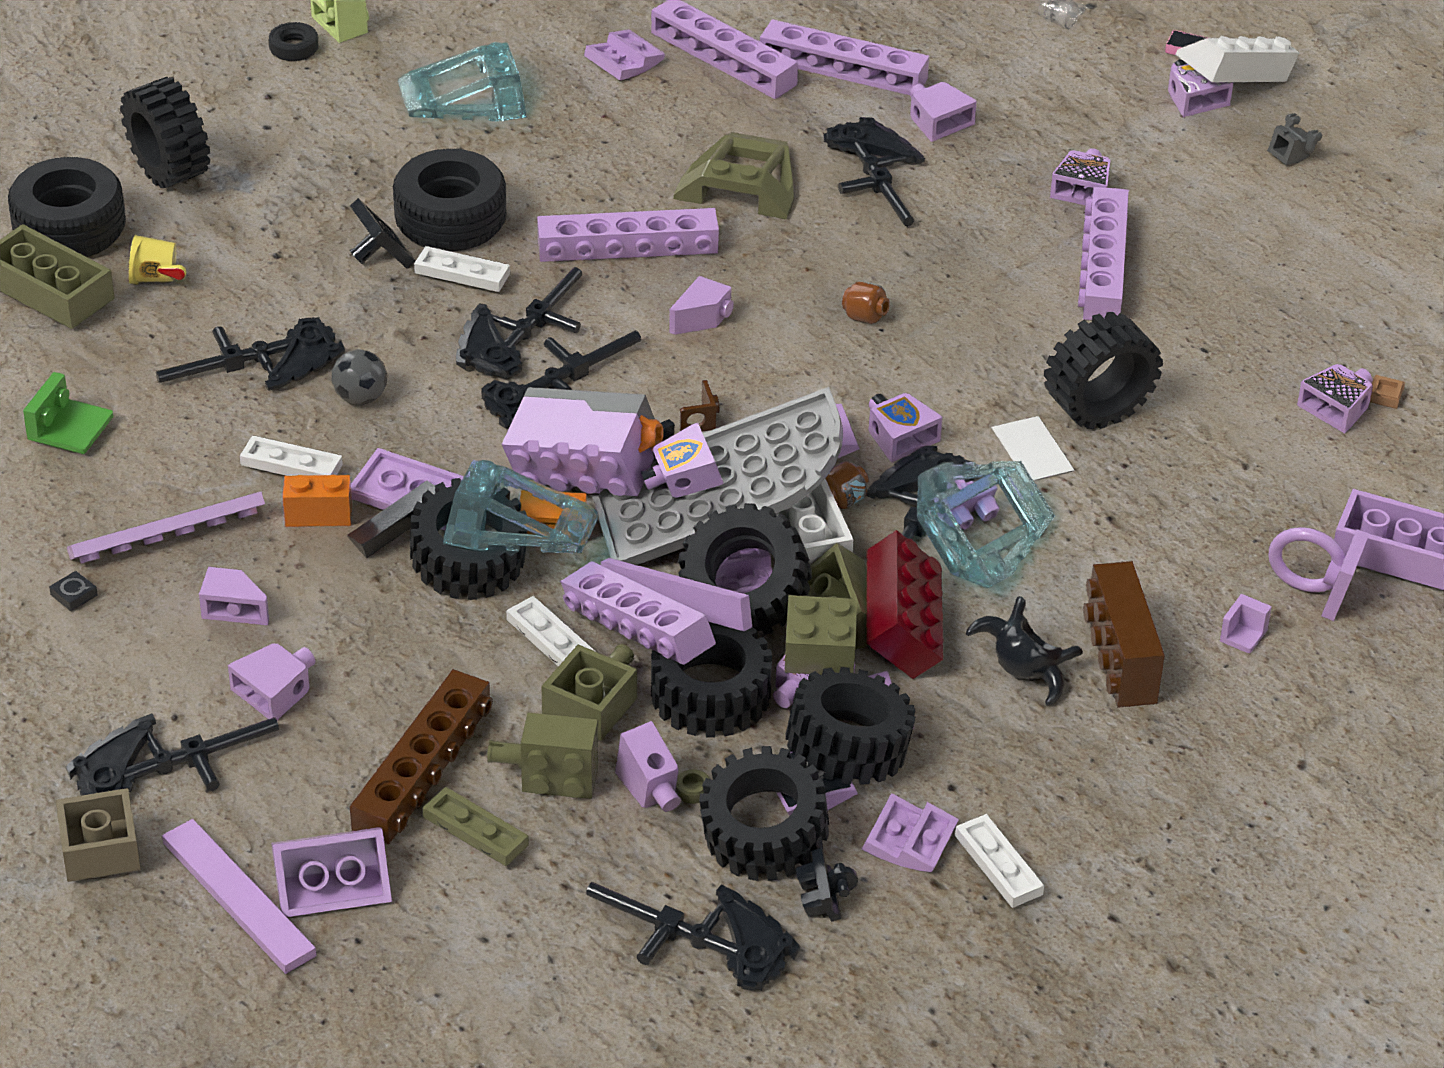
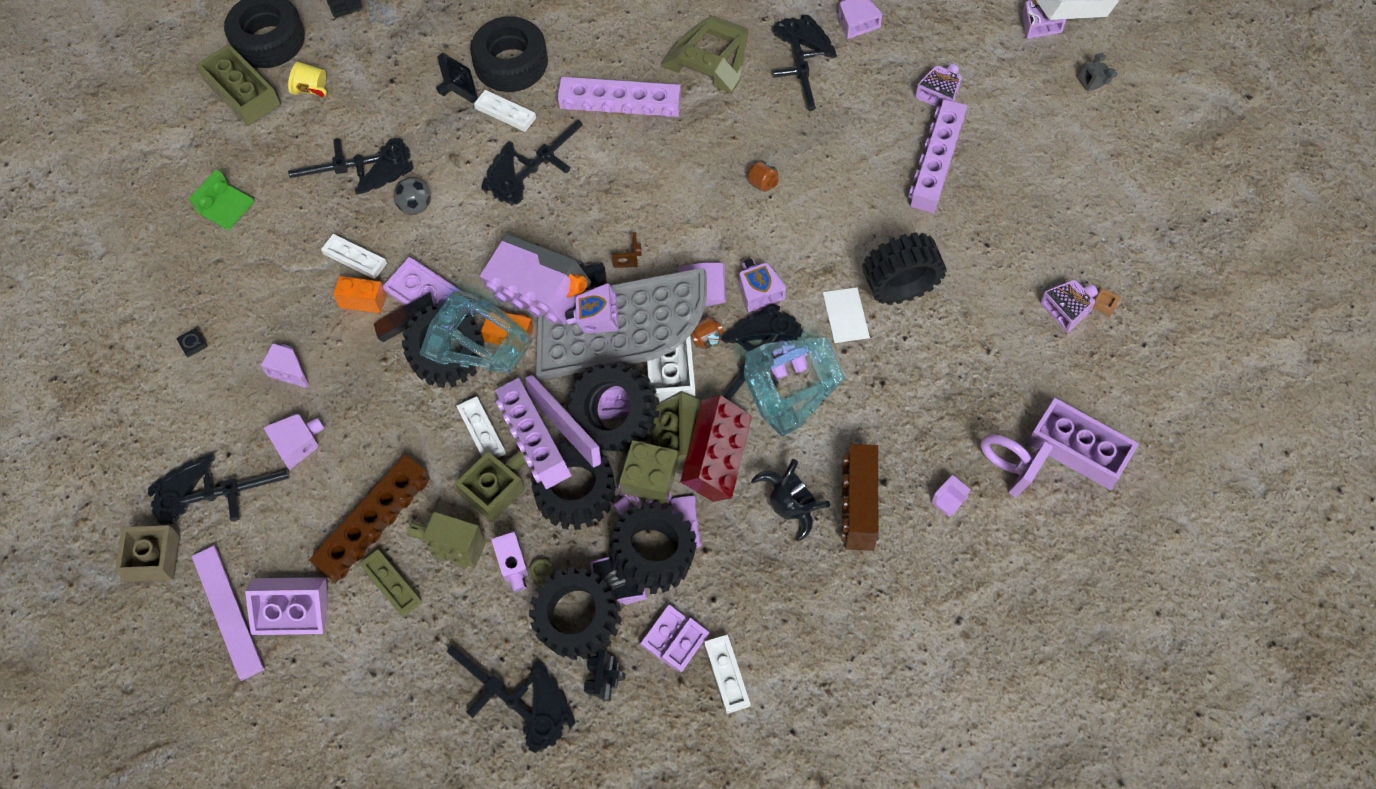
camera: 15 degrees right, 20 degrees up
(153, 531) = (252, 302): lavender plate -> none
(506, 398) = (516, 224): black bar -> none
(701, 307) = (651, 165): lavender slope -> none

